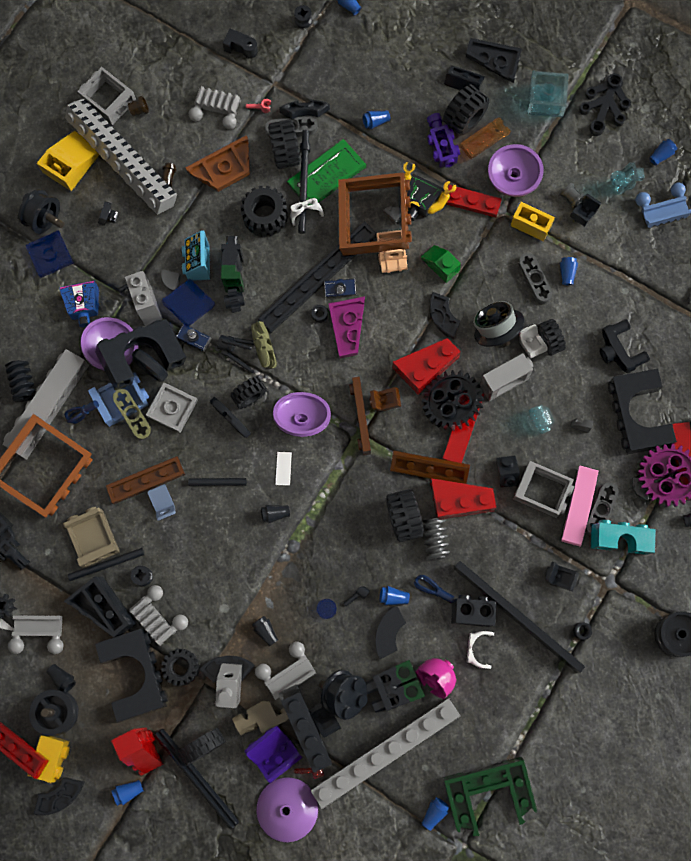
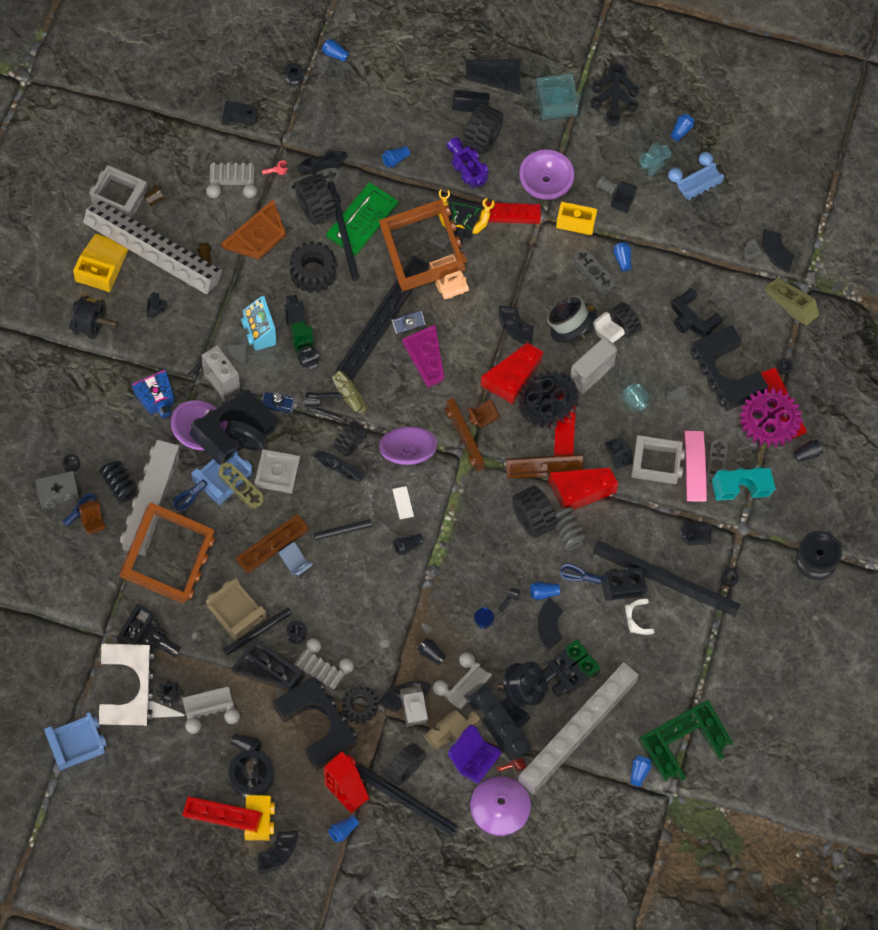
camera: 25 degrees left, 10 degrees down
(49, 254) = (107, 357): clear blue tile -> none
(188, 303) = (263, 370): clear blue tile -> none
(294, 213) = (344, 261): white cap -> none
(322, 308) = (395, 345): black axle -> none
(438, 676) = (607, 649): dark pink cylinder -> none
(442, 262) = (500, 276): green slope -> none
(484, 138) = (507, 151): clear orange plate -> none

